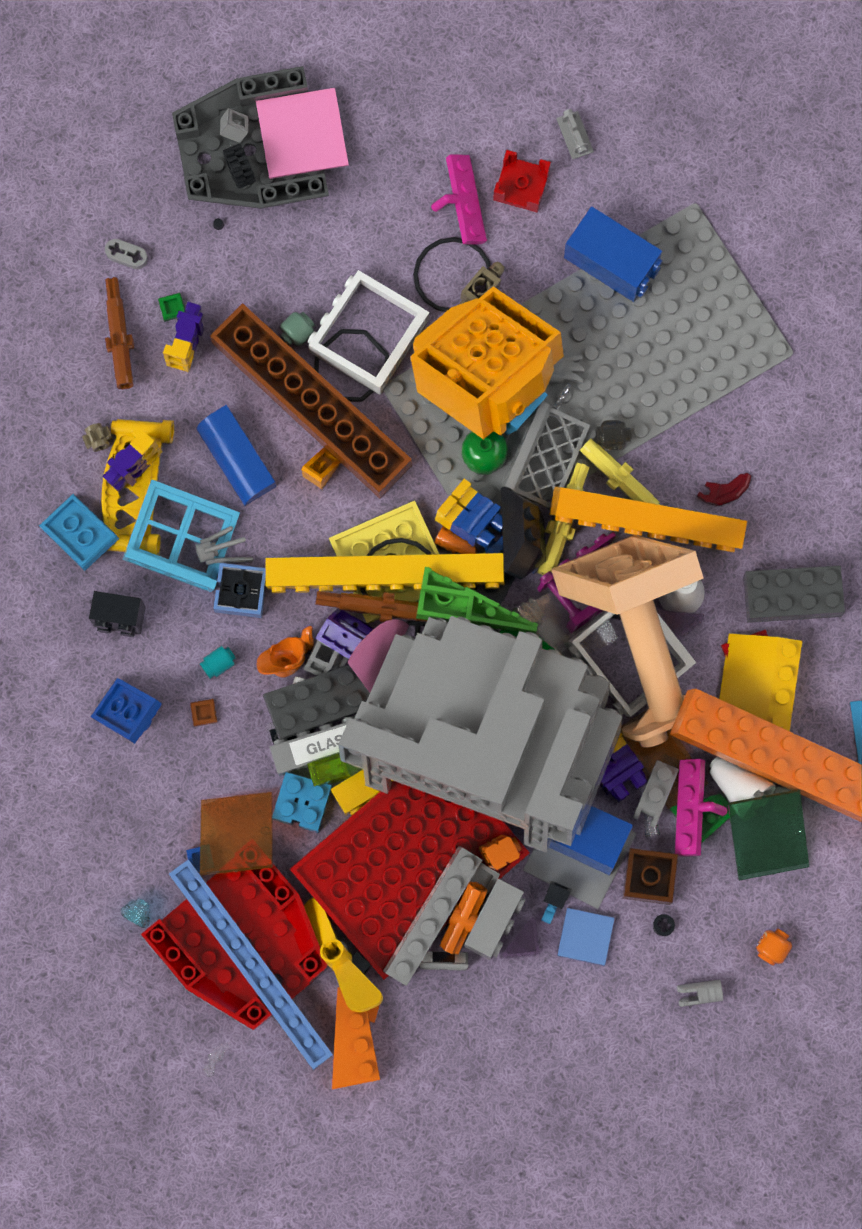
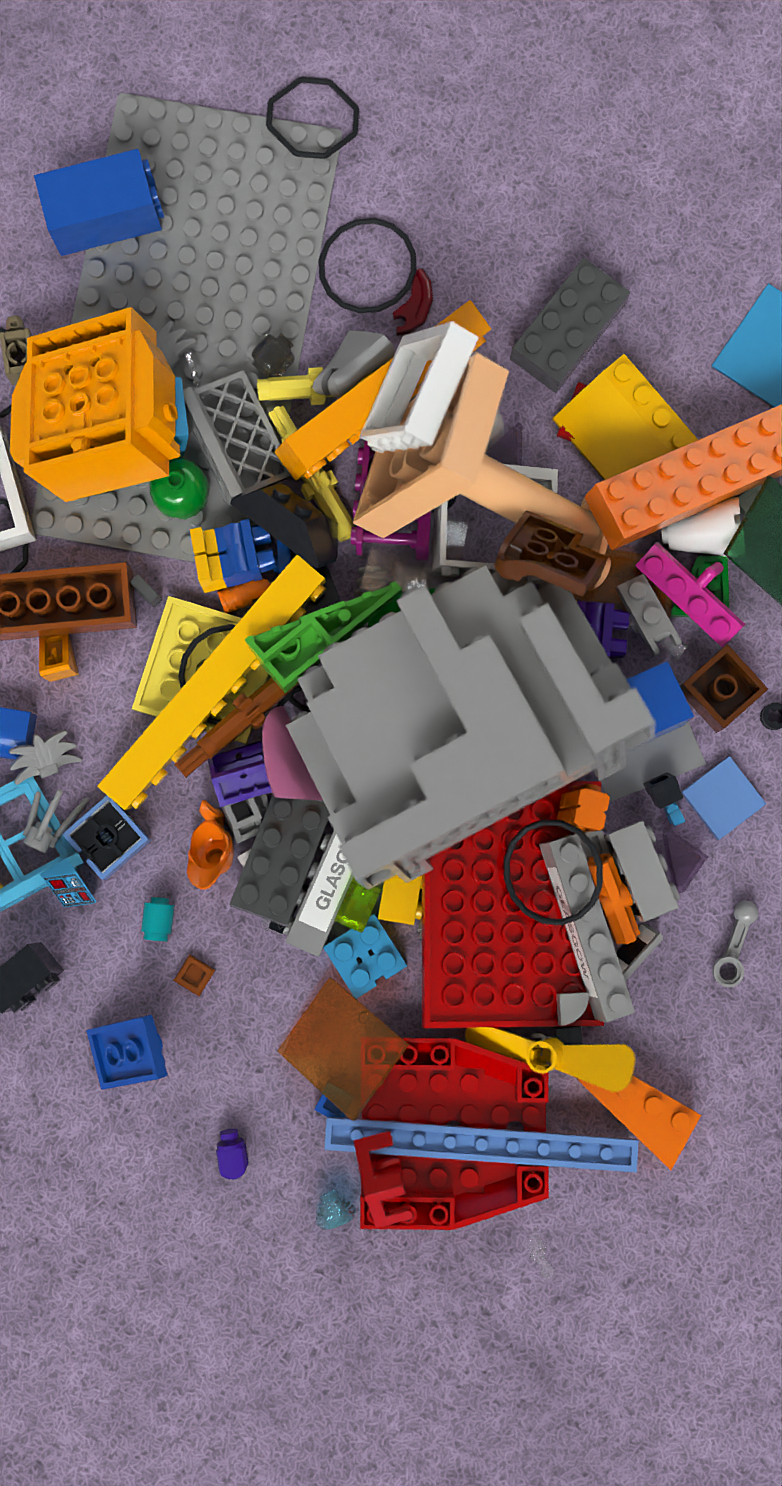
camera: 50 degrees left, 5 degrees up
(118, 825) = (231, 1154): none -> dark purple arm
(179, 917) = (381, 1180): none -> red panel
(193, 592) = (67, 884): none -> slope
(255, 512) = (42, 757): none -> light grey piece
(377, 948) = (571, 1006): none -> light grey tile
(406, 484) = (145, 591): none -> dark grey tile
(427, 837) = (599, 872): none -> black piece
(526, 1009) = (745, 914): none -> light grey piece
(627, 697) = (550, 553): none -> reddish brown slope
(653, 536) = (450, 351): none -> white window
(654, 485) = (355, 358): none -> light grey piece
(723, 406) = (335, 235): none -> black piece
(777, 359) = (336, 147): none -> black piece

